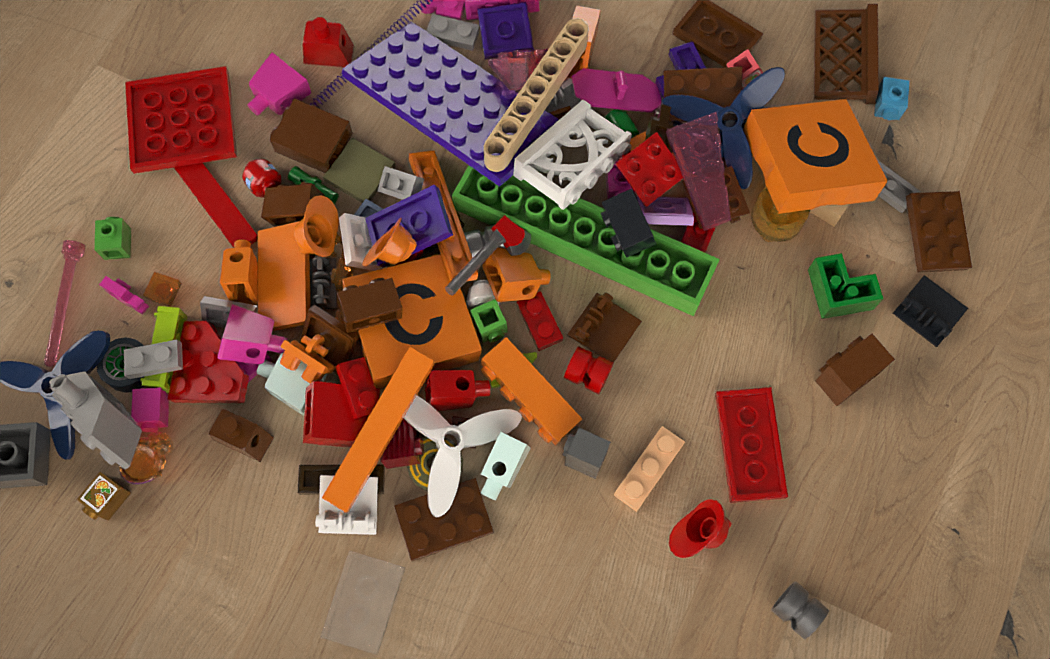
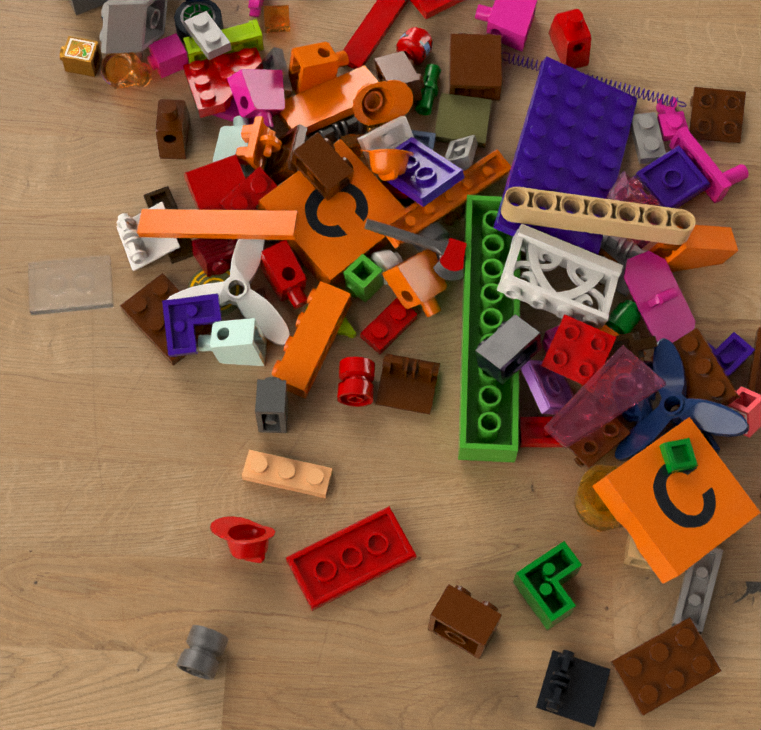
camera: 65 degrees right, 5 degrees down
(461, 498) = (183, 315): none -> dark purple plate
(786, 132) = (678, 455): none -> green tile

